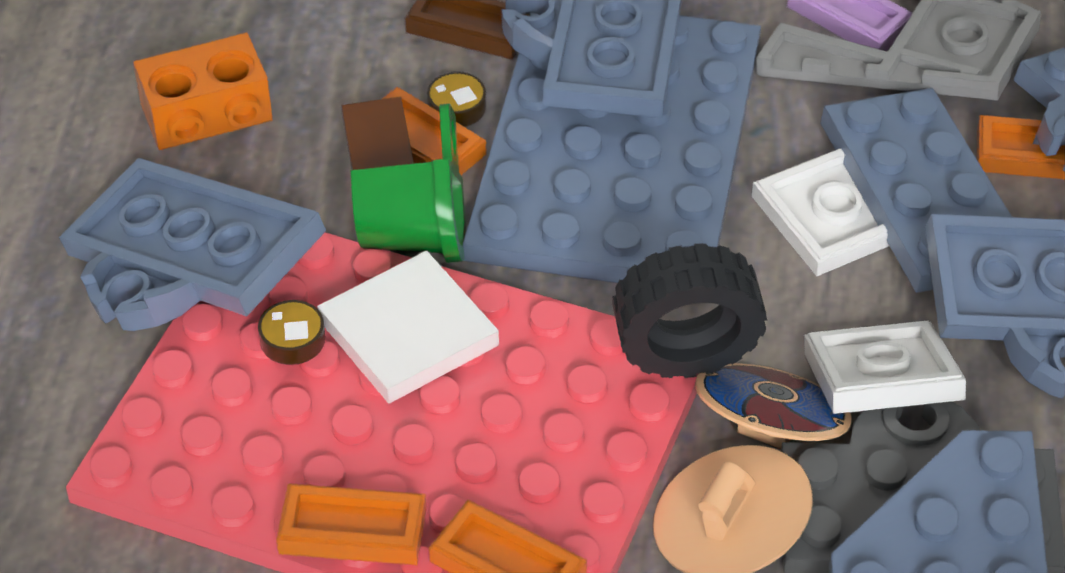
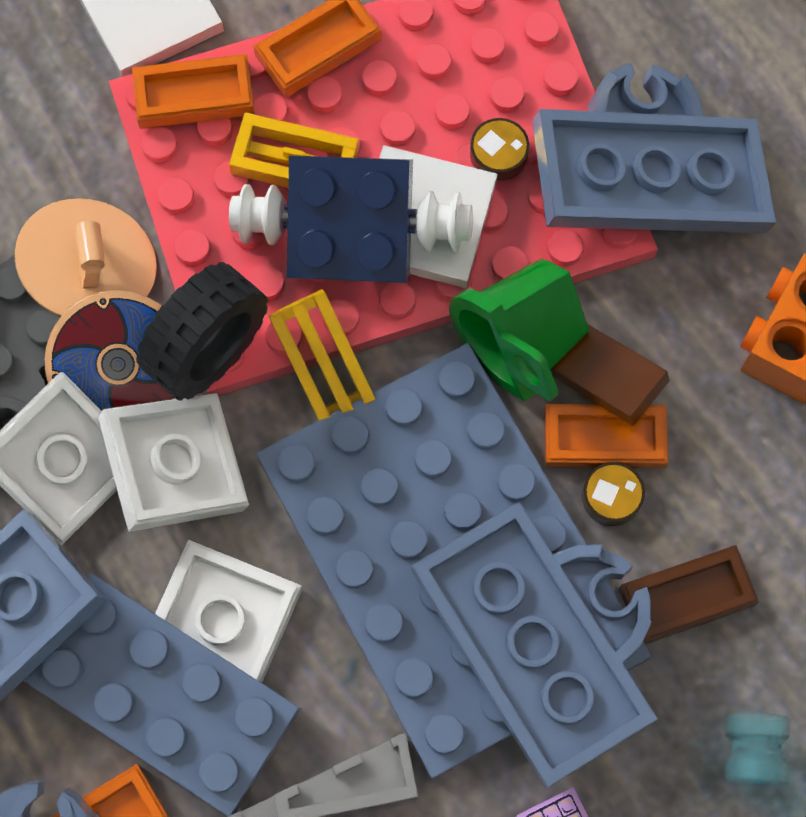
camera: 140 degrees right, 25 degrees up
(480, 491) = (284, 132): none -> yellow tile
(482, 332) = (350, 218): none -> dark blue plate
(597, 280) = (299, 310): none -> yellow tile
(804, 302) = (172, 461): none -> white tile

